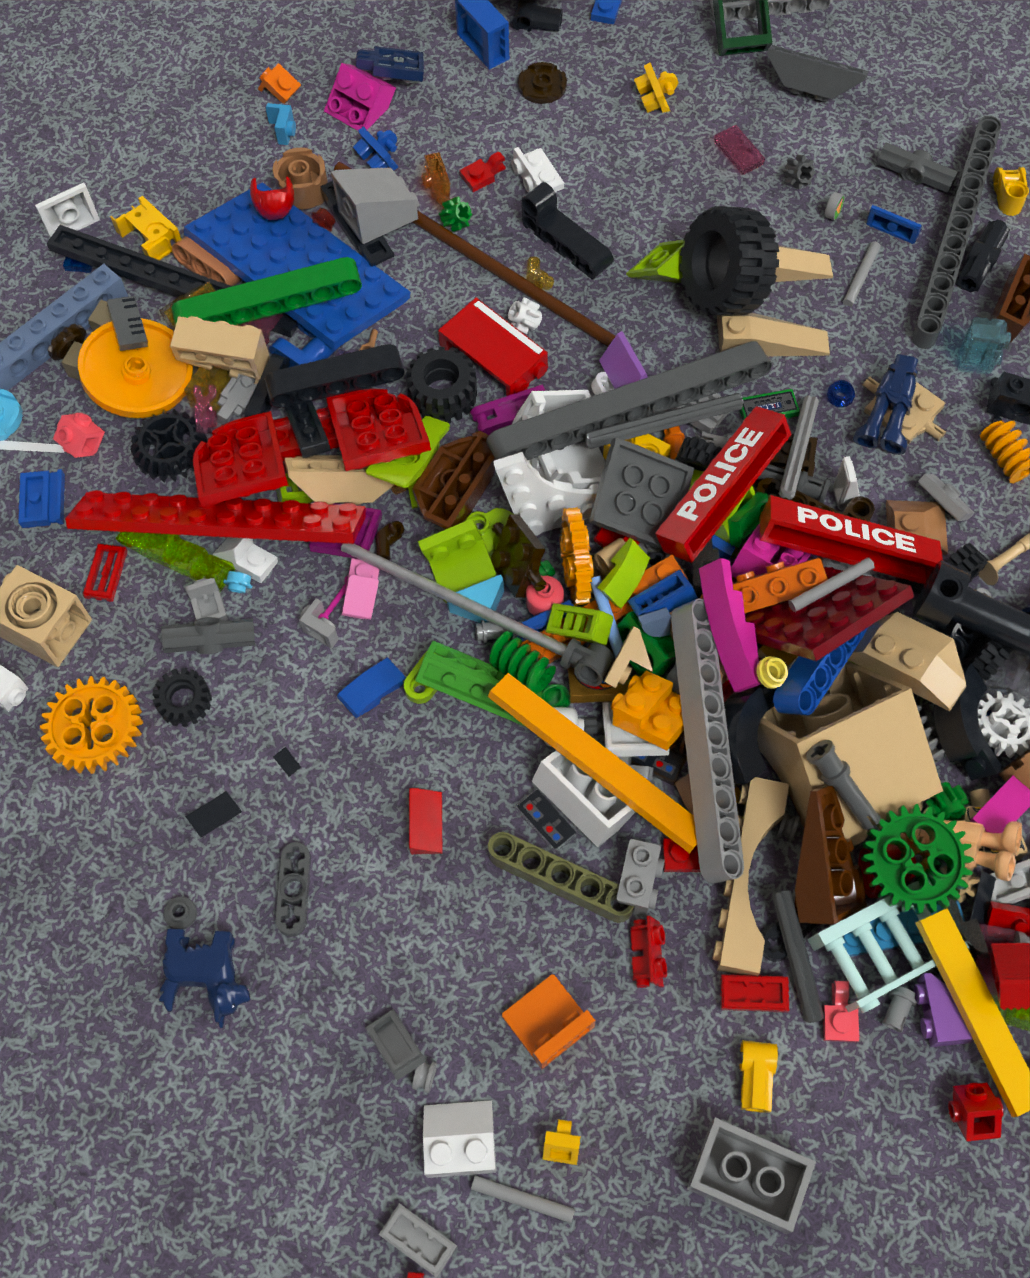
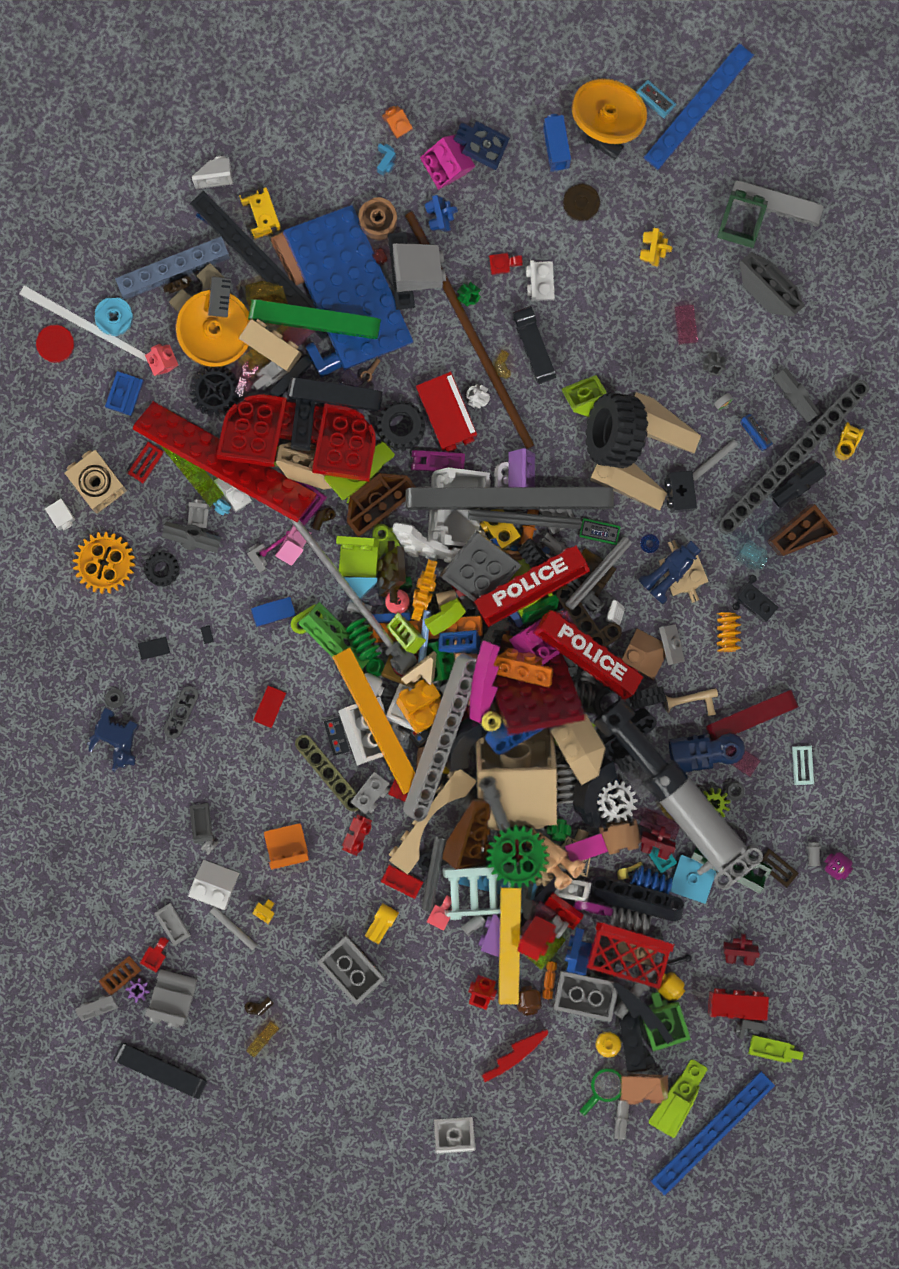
camera: 20 degrees right, 20 degrees up
(272, 203) = (349, 236): red hair -> none
(436, 178) = (468, 261): clear orange piece -> none
(656, 623) = (446, 656): sand blue tile -> none
(831, 584) = (550, 687): light grey bar -> none
(845, 317) = (684, 482): none -> black brick

